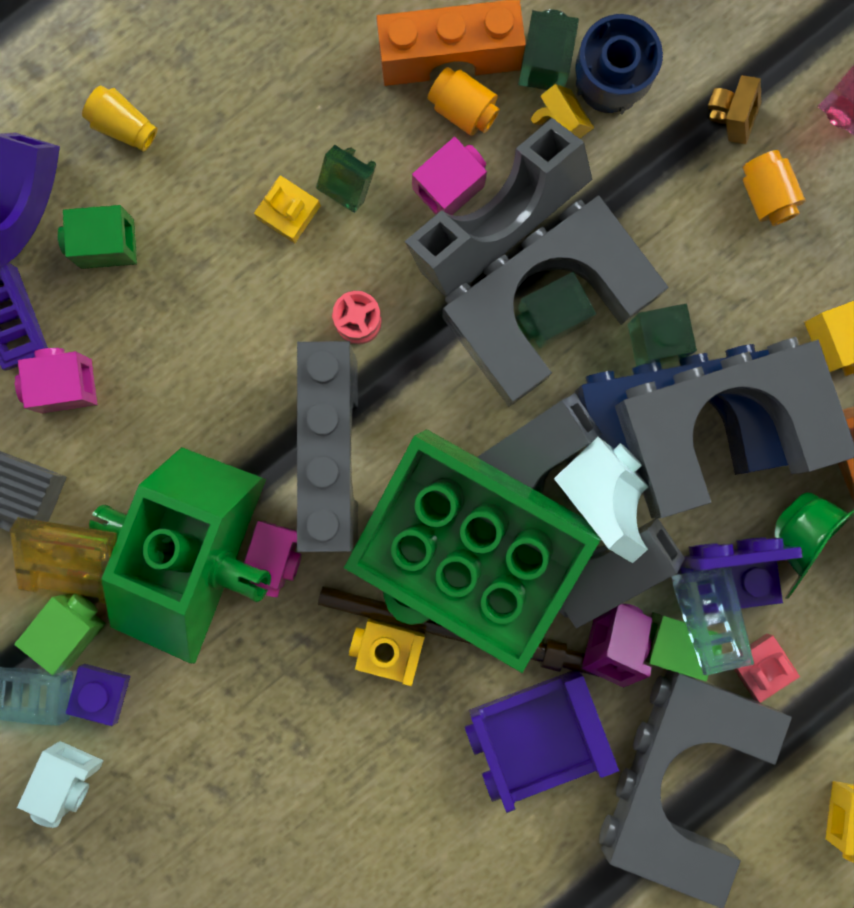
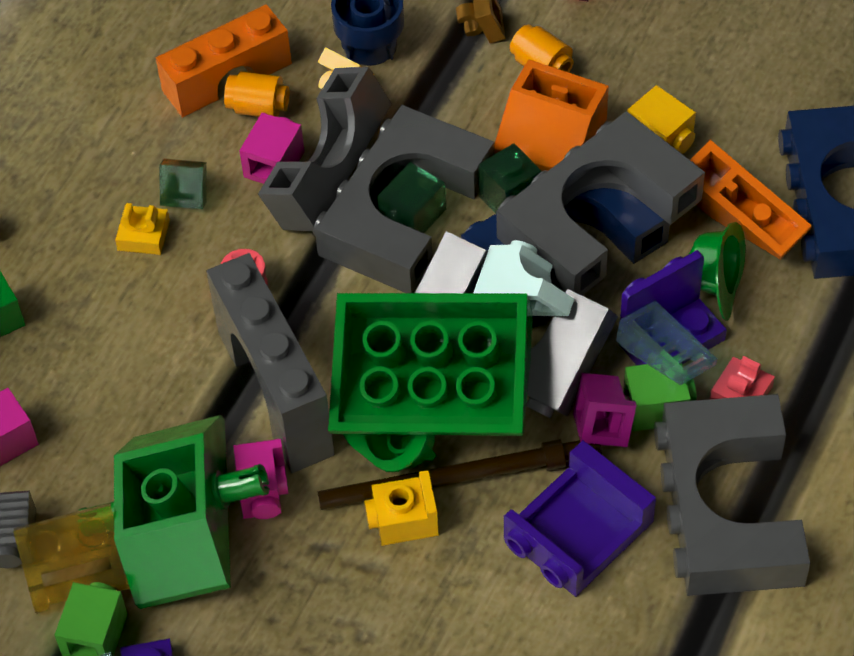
camera: 20 degrees left, 30 degrees down
(548, 49) = (307, 35): clear green brick -> none
(740, 282) = (551, 113): none -> orange slope

